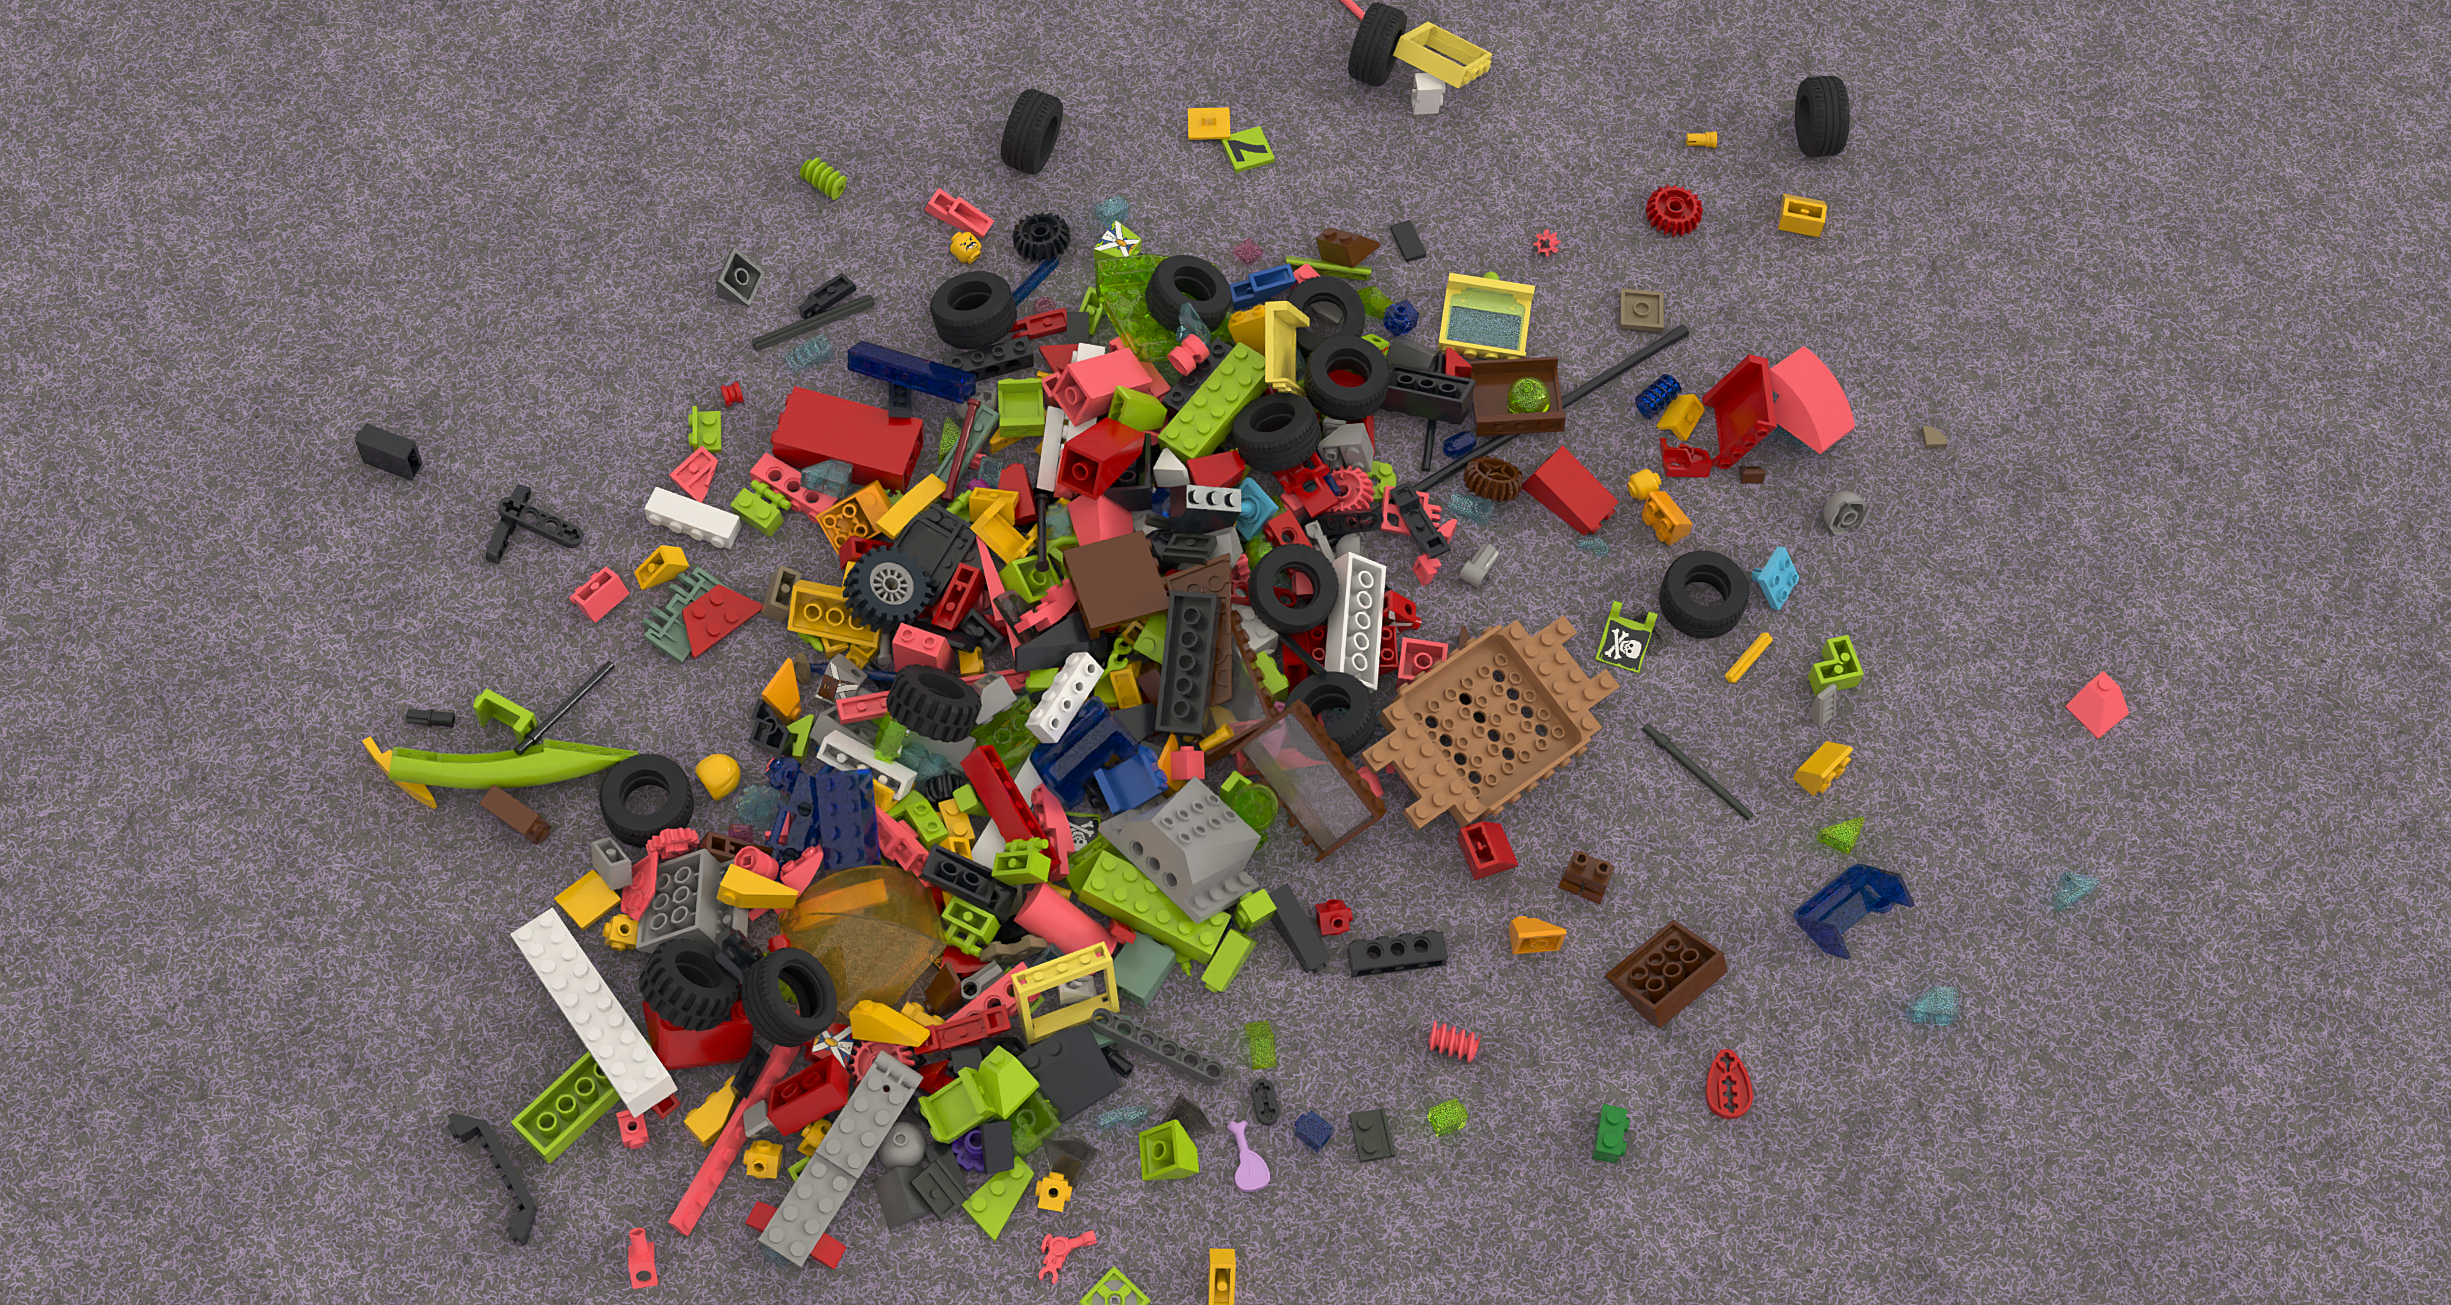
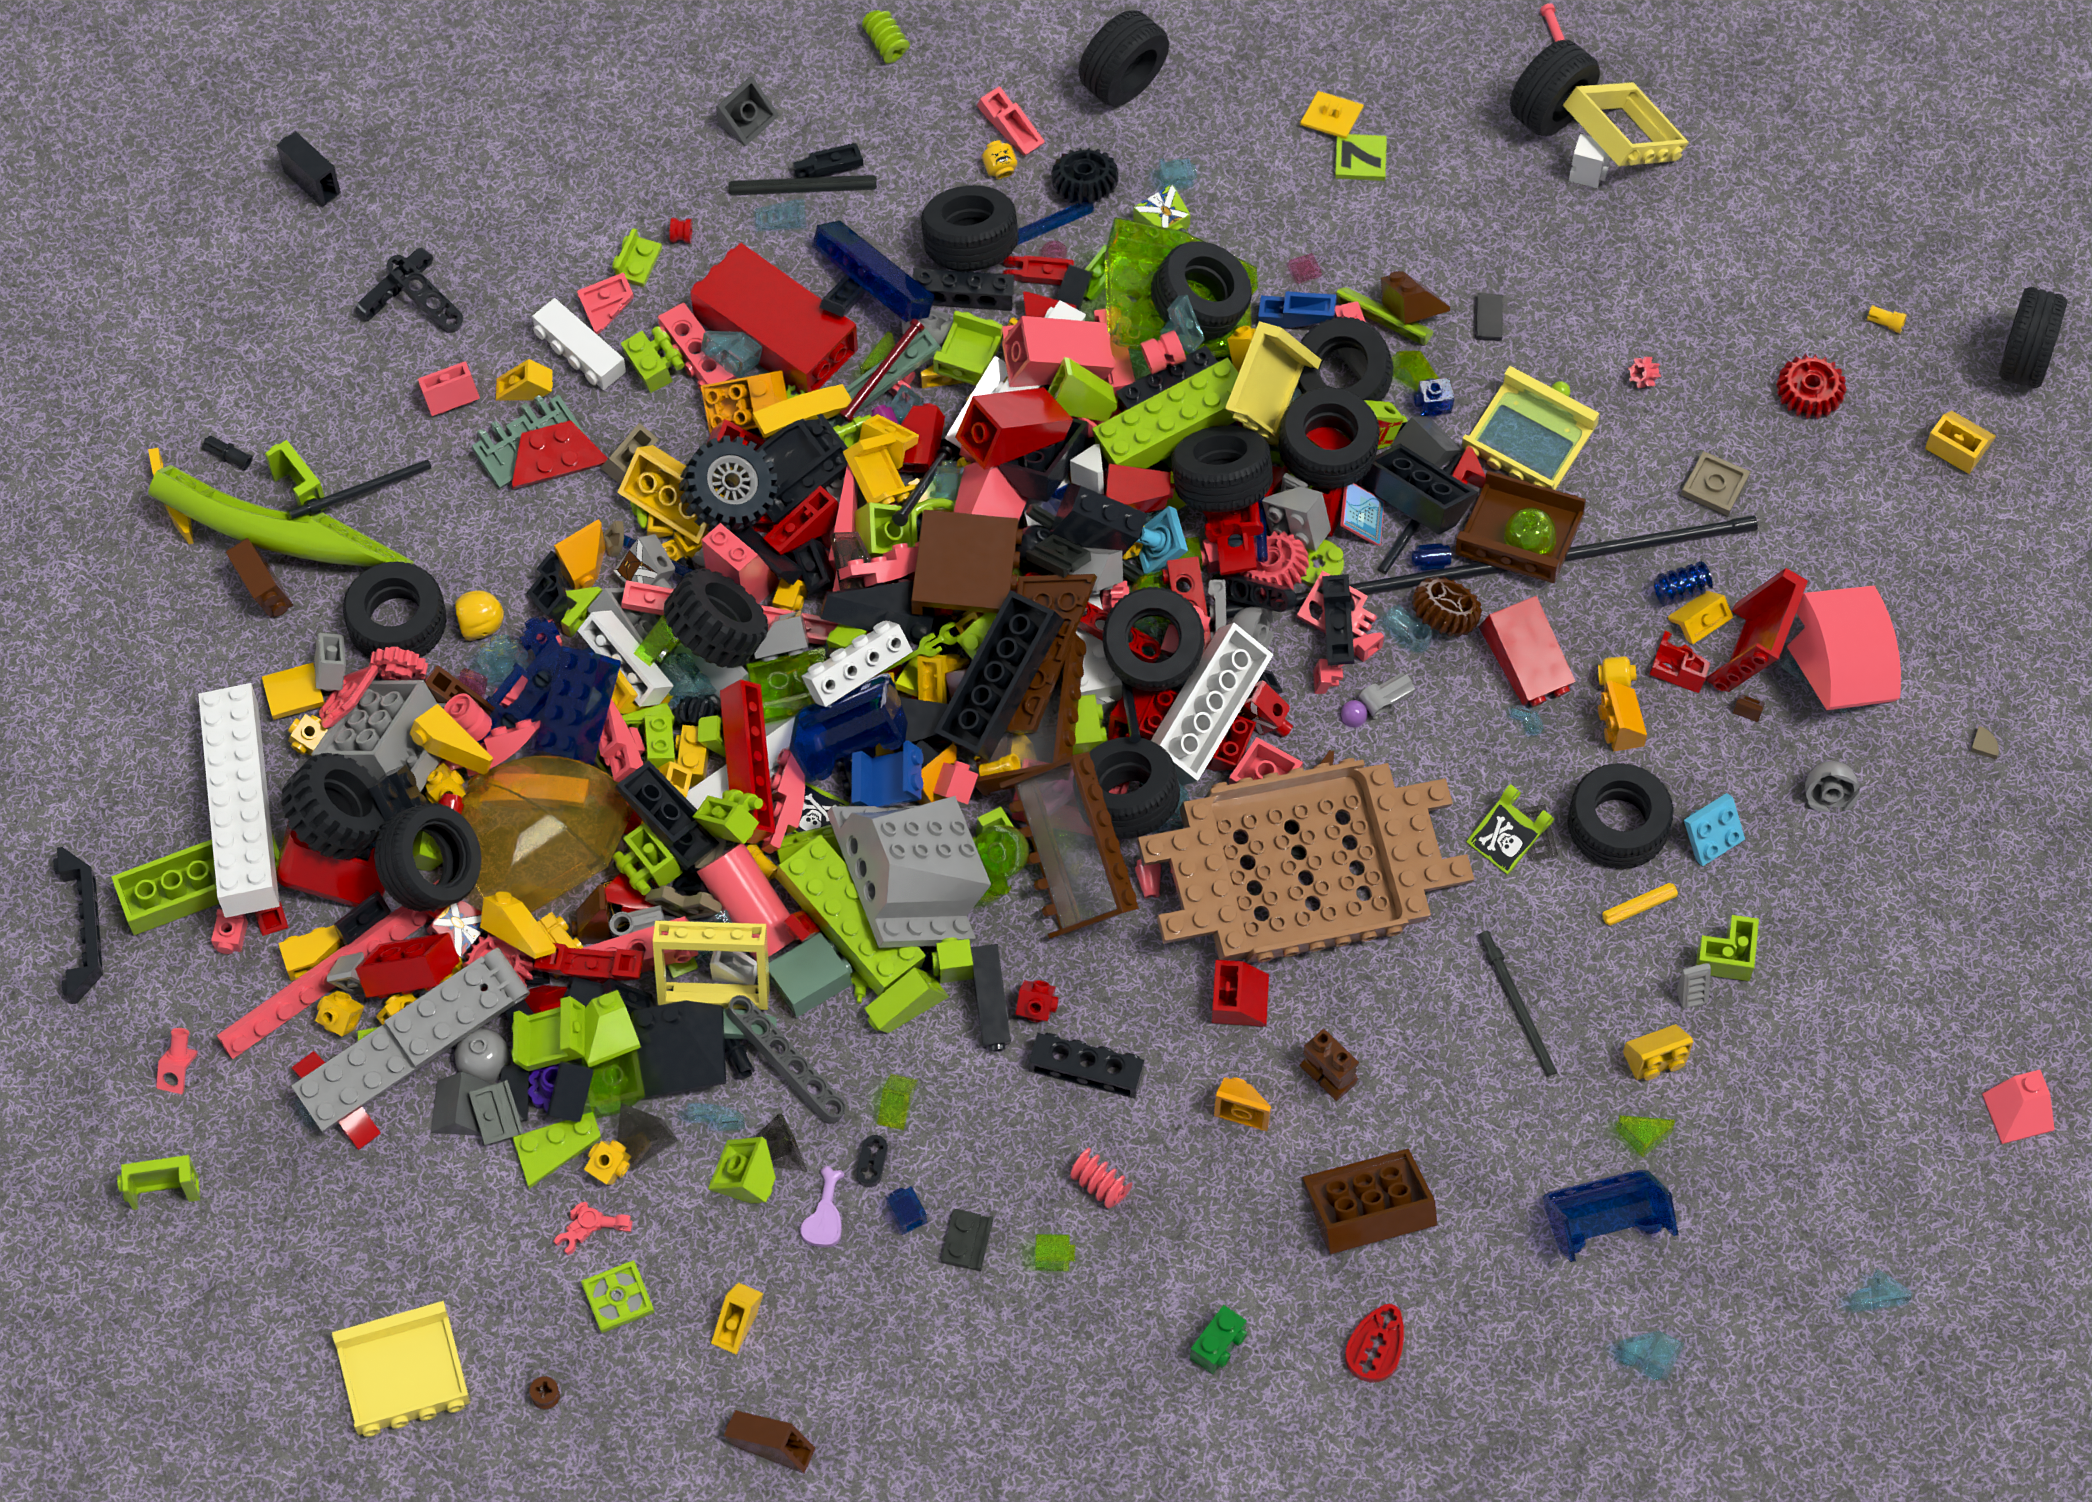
camera: 30 degrees right, 0 degrees up
(761, 929) = (442, 782): none -> yellow brick
(1391, 430) = (1362, 513): none -> piece
(1460, 590) = (1353, 713): none -> medium lavender piece

